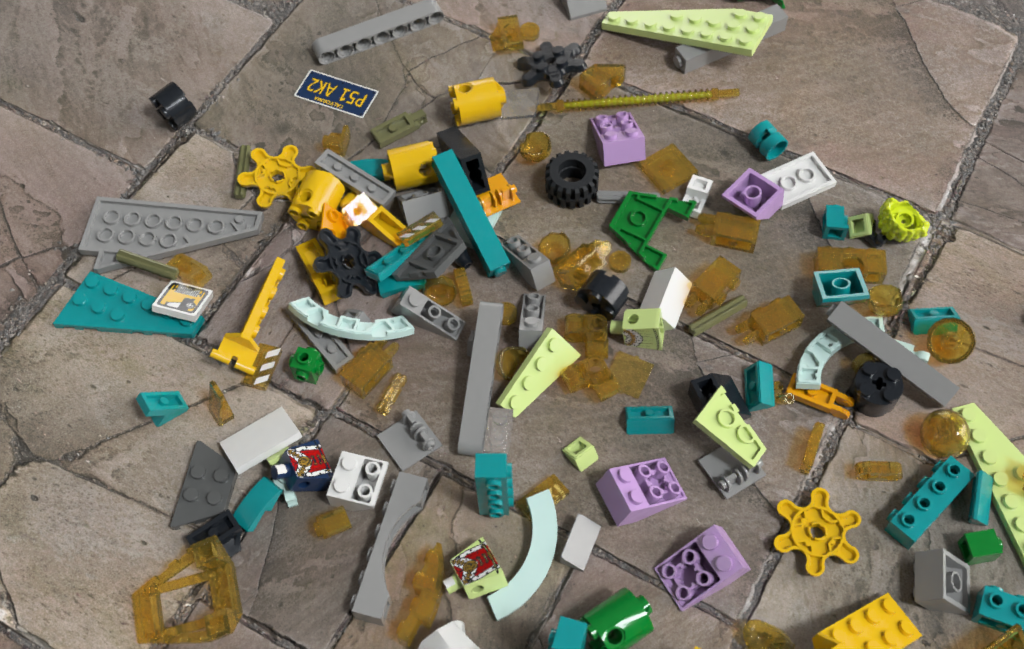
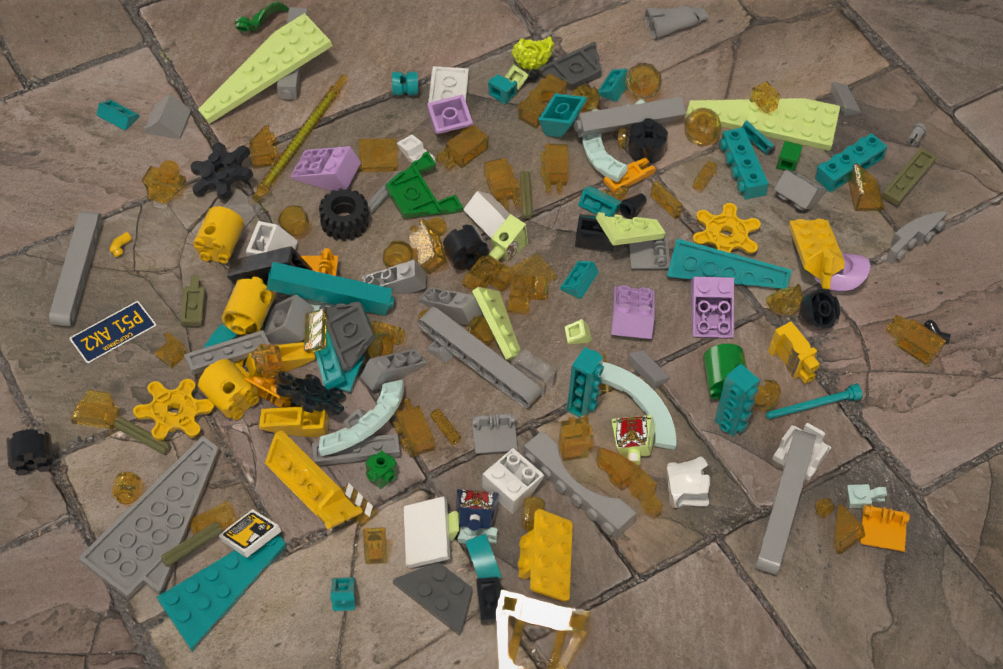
camera: 65 degrees left, 5 degrees down
(181, 189) = (126, 487): none -> clear yellow head
(247, 127) = (95, 410): none -> clear yellow slope
(292, 562) = (547, 555): none -> yellow bracket
(425, 43) = (116, 244): none -> yellow arm
(435, 513) = (575, 438): none -> clear yellow hinge
(495, 144) = (268, 238): none -> white slope
(755, 535) = (697, 260): none -> teal wing
(781, 419) = (632, 205): none -> black cone
(922, 271) = (575, 67): none -> dark grey wing

